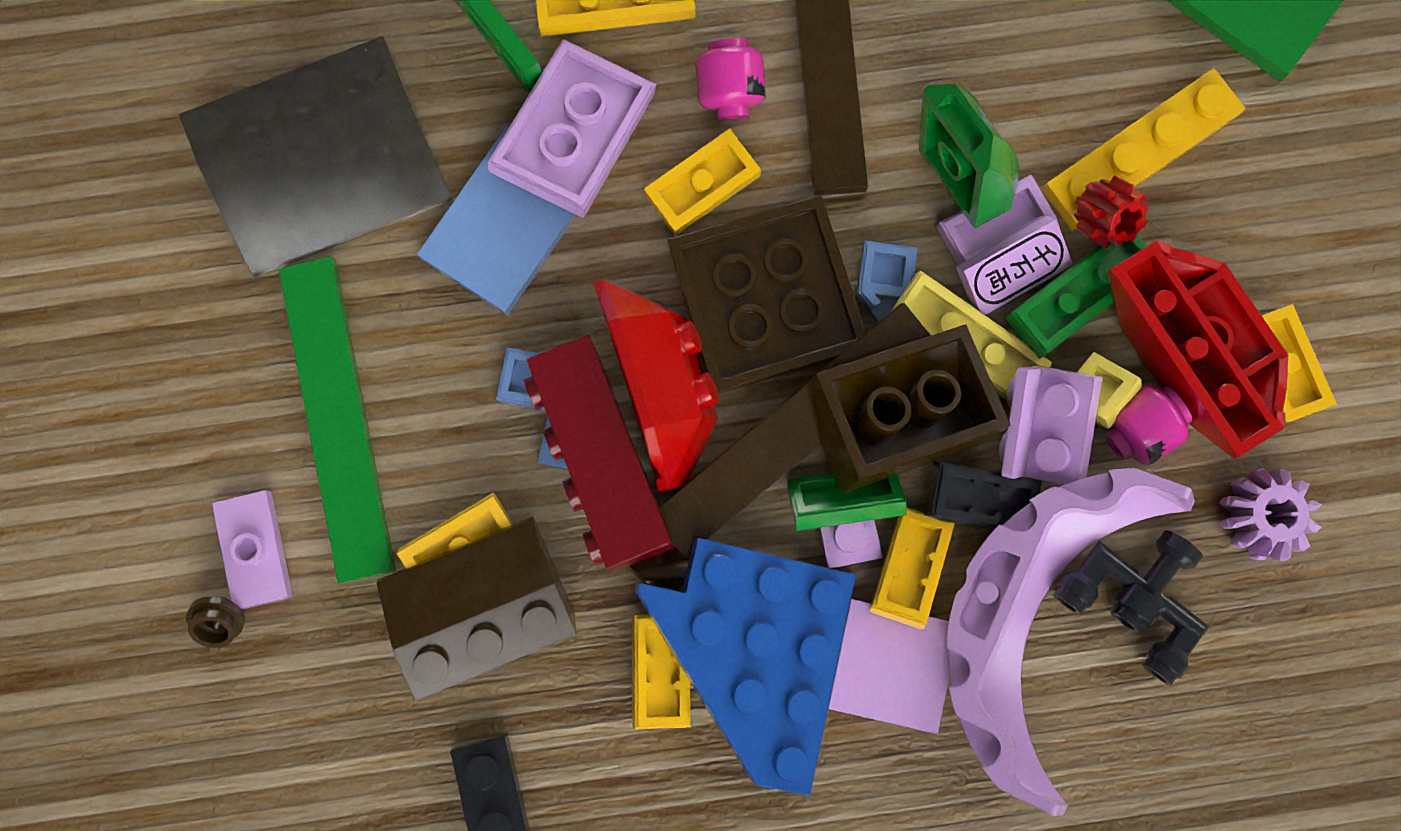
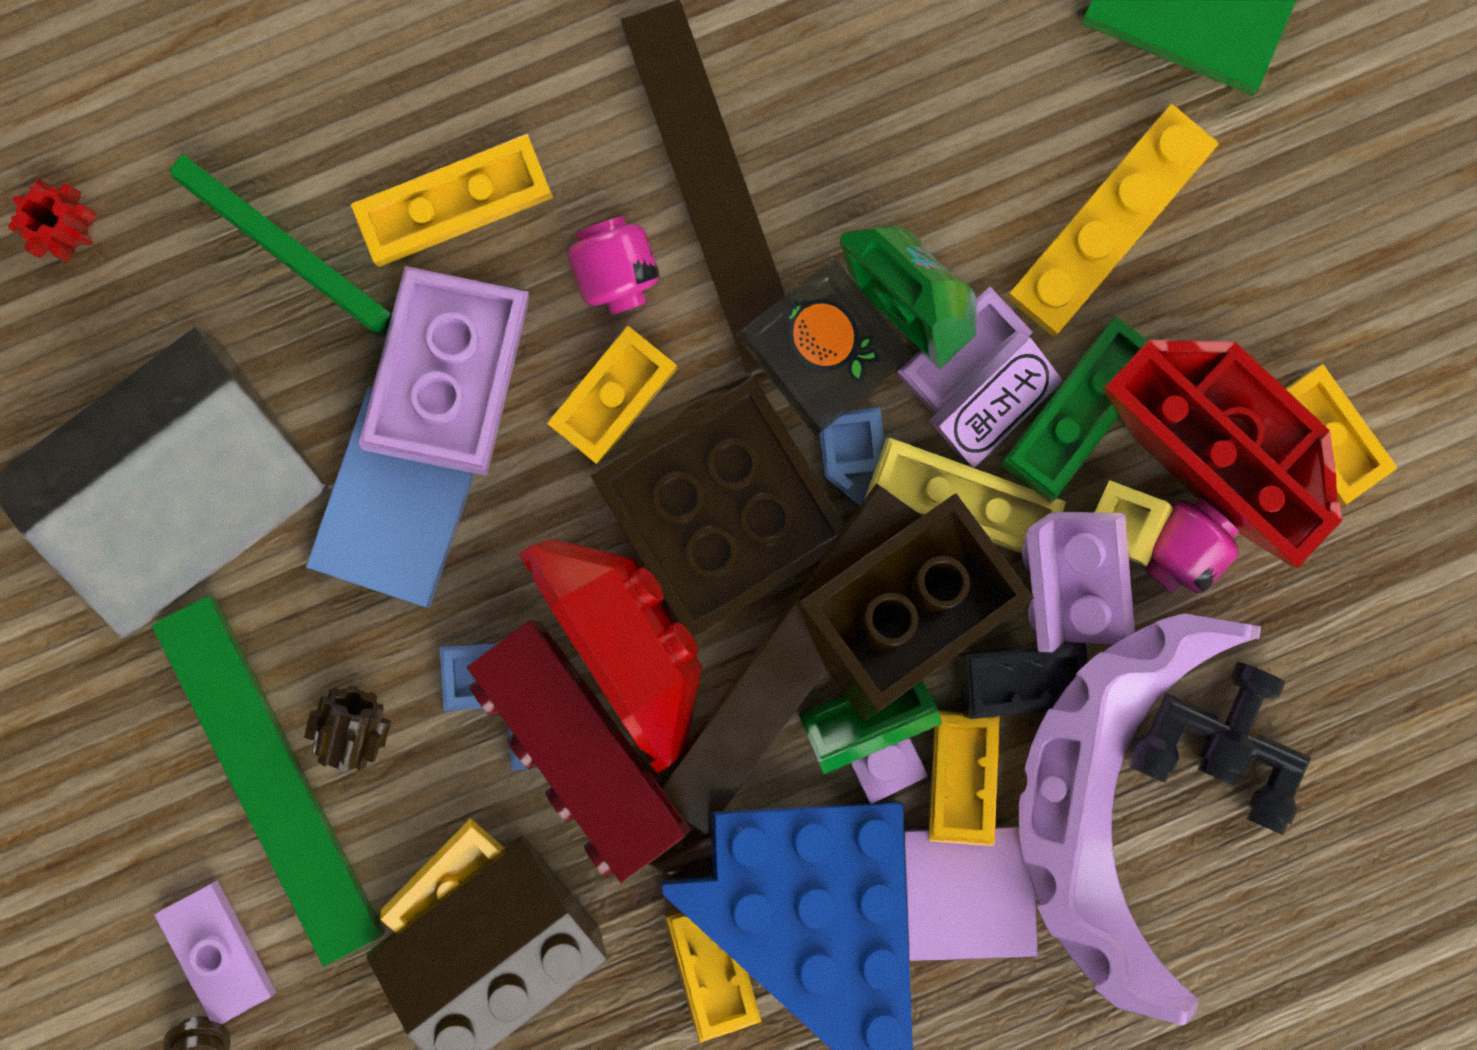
camera: 15 degrees left, 5 degrees up
(413, 391) = (347, 729): none -> dark brown gear
(884, 185) = (824, 346): none -> clear smoke tile
(1111, 211) = (1090, 314): red gear -> none
(1289, 514) = (1373, 612): lavender gear -> none

